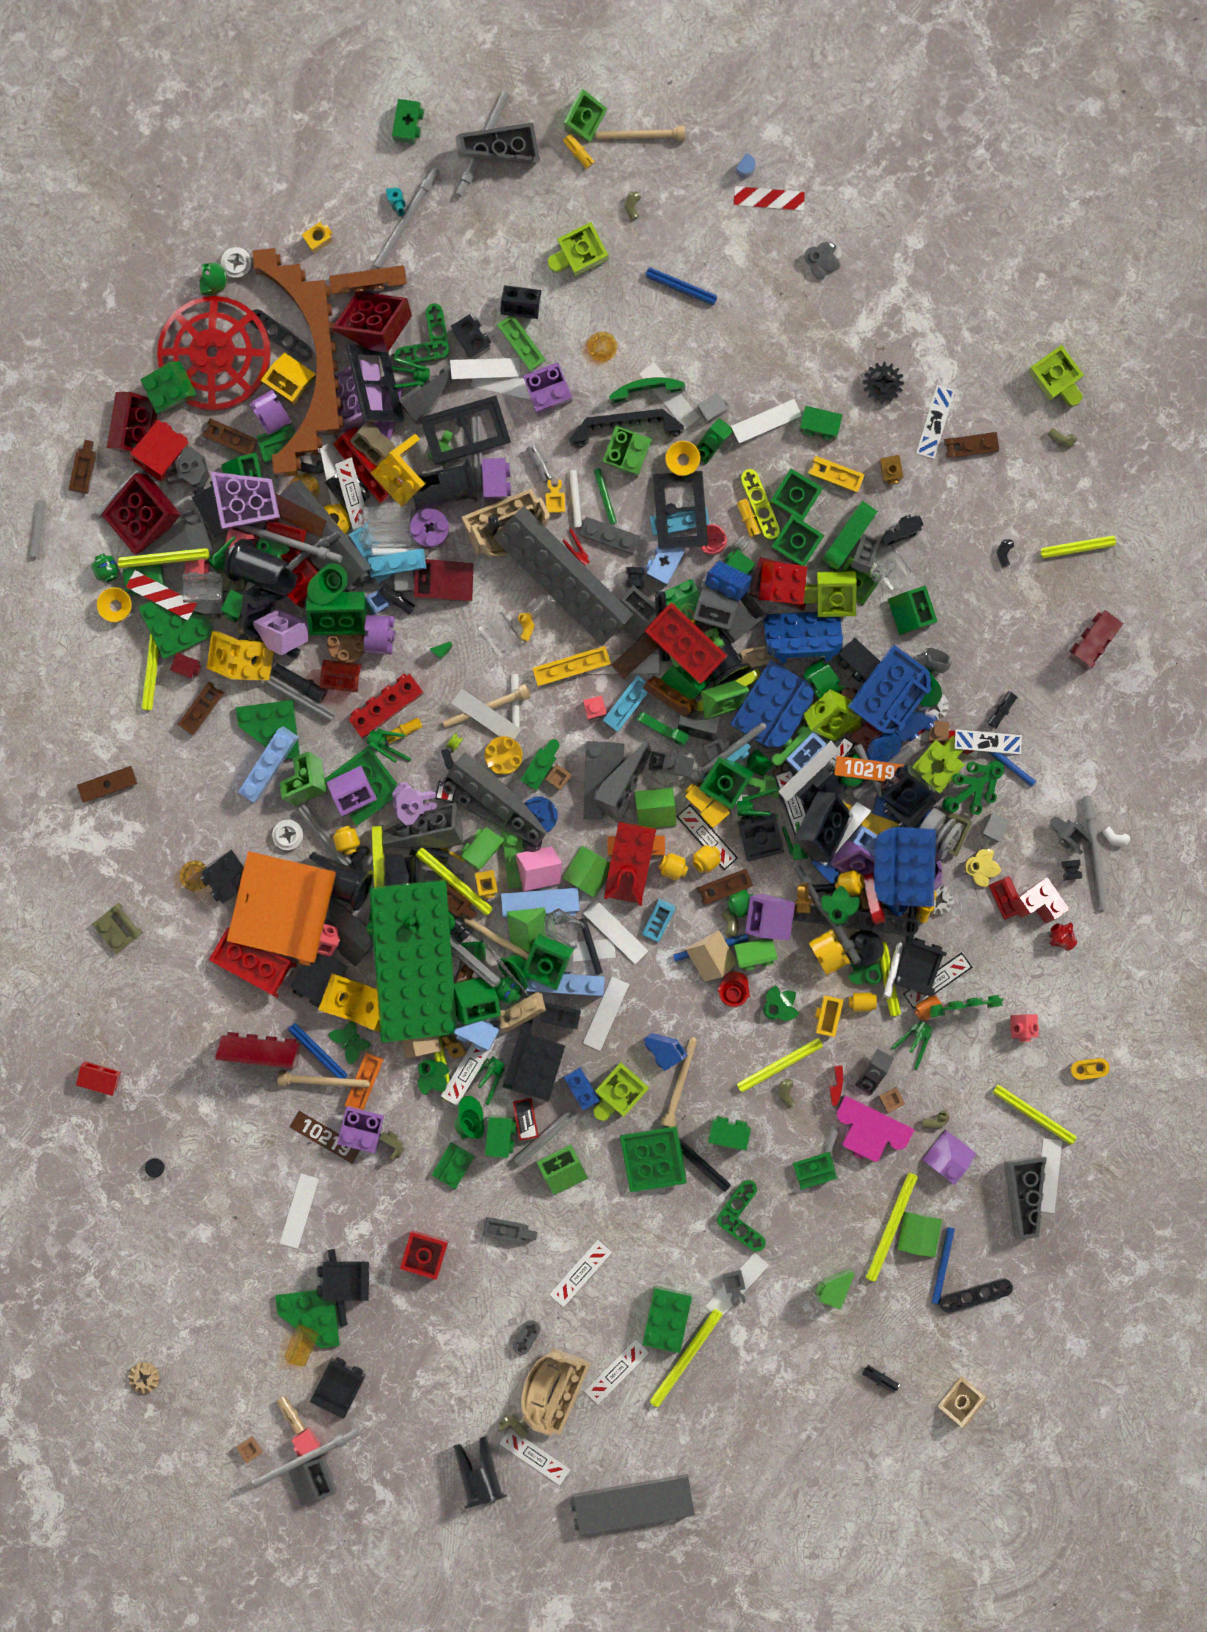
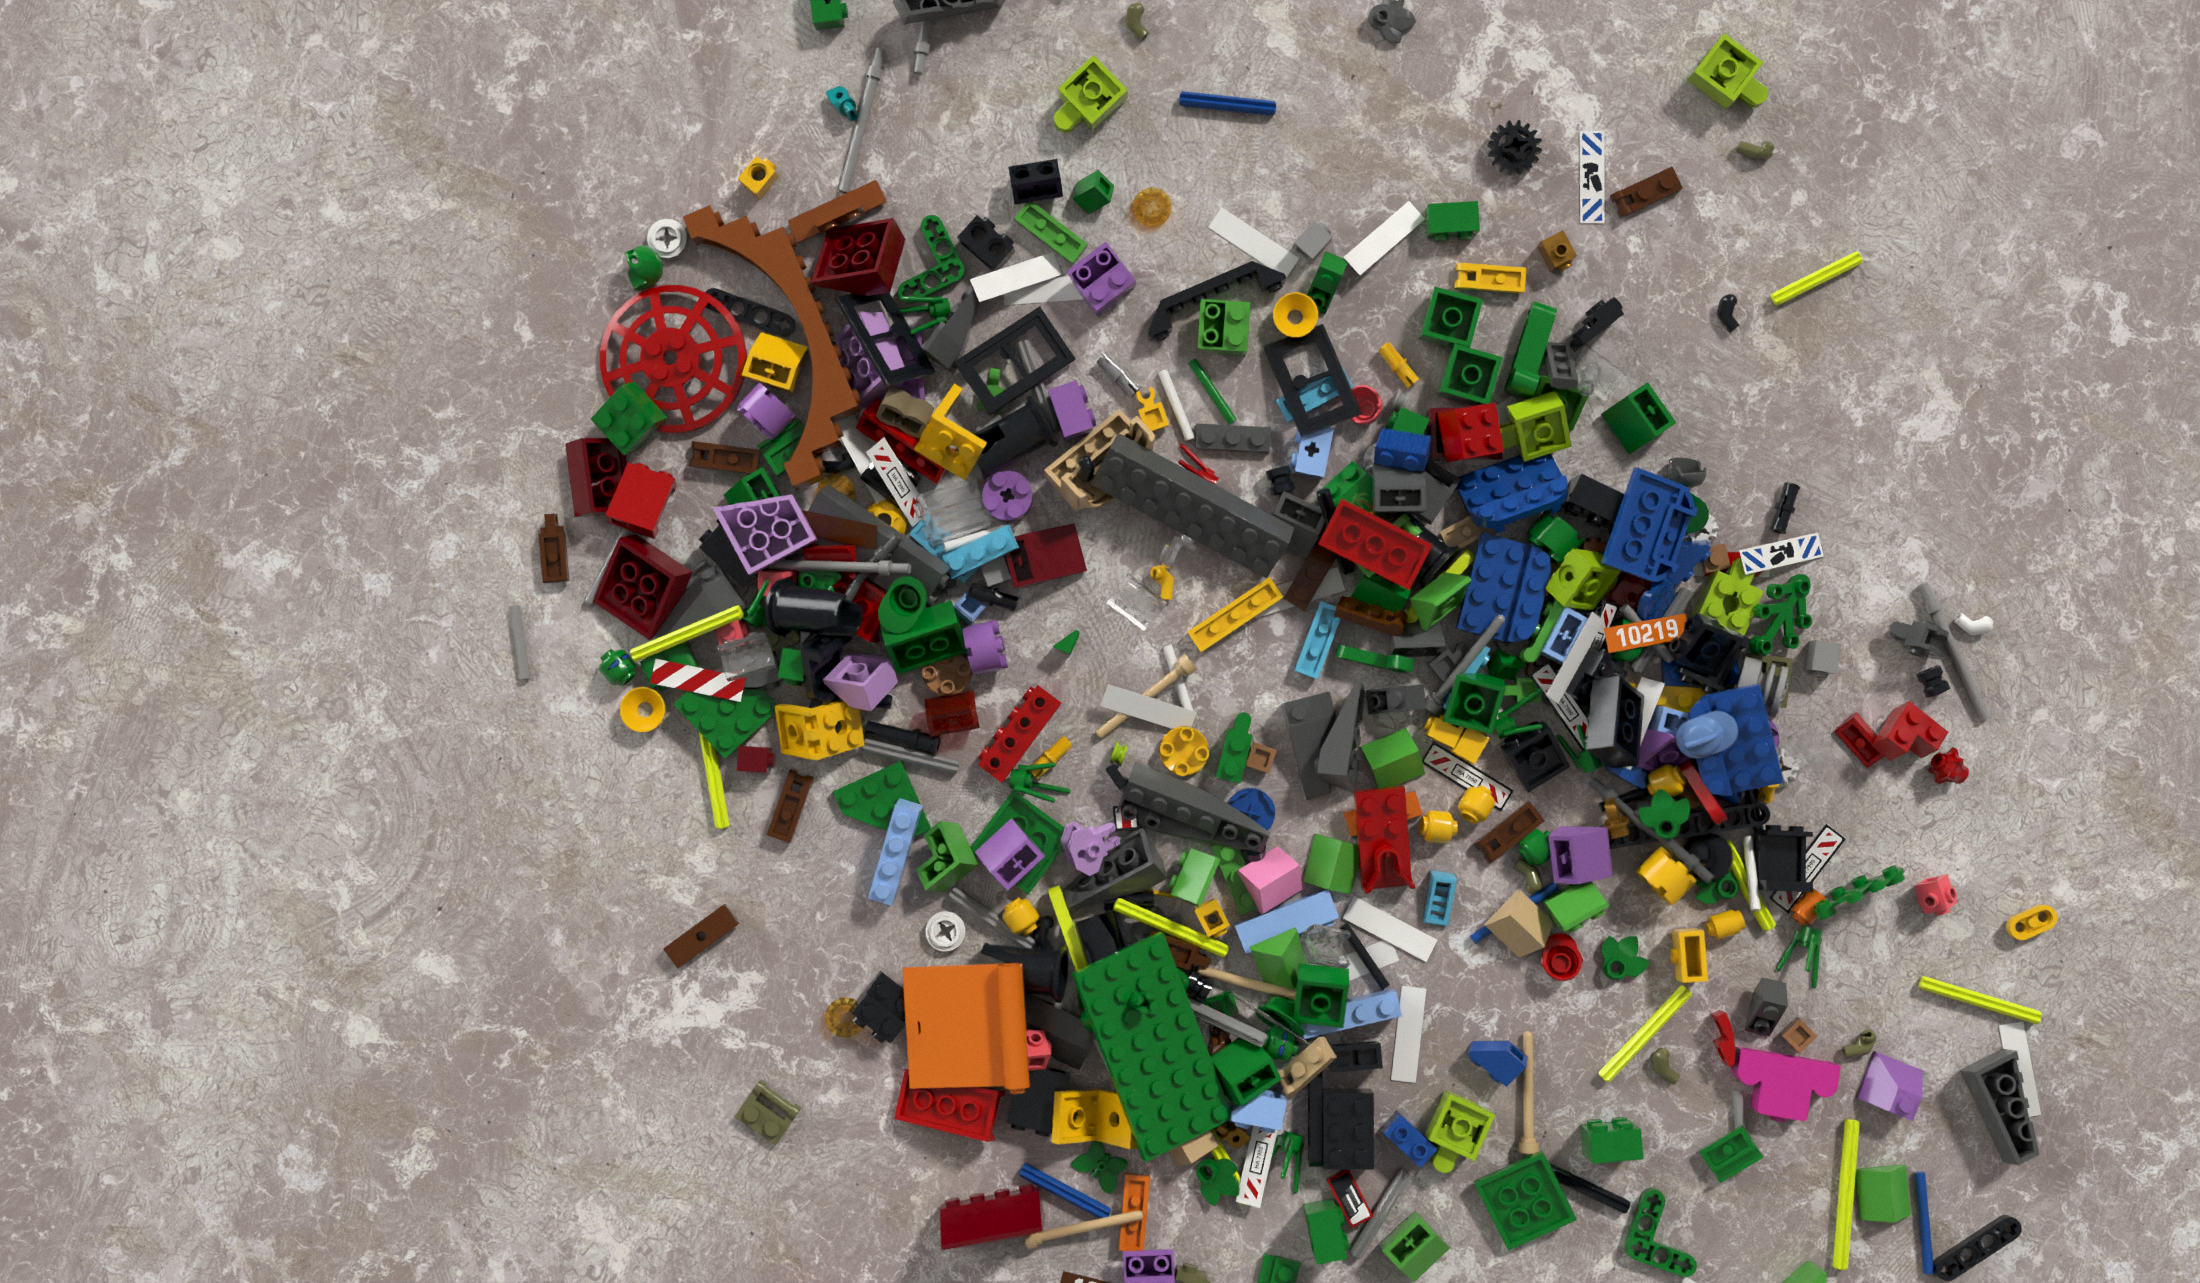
camera: 15 degrees left, 0 degrees up
(190, 469) = (687, 511): dark grey hinge -> none
(469, 1119) = (1281, 1219): green piece -> none
(561, 322) = (1093, 192): none -> green panel
(594, 707) = (1280, 658): coral brick -> none
(671, 385) = (1252, 229): green slope -> none
(757, 505) = (1410, 341): neon yellow beam -> none
(886, 854) = (1707, 734): none -> medium blue piece
(985, 867) = (1823, 711): light yellow plate -> none
(1013, 767) = (1821, 576): blue bar -> none
(1095, 640) = (1875, 387): dark red wedge -> none

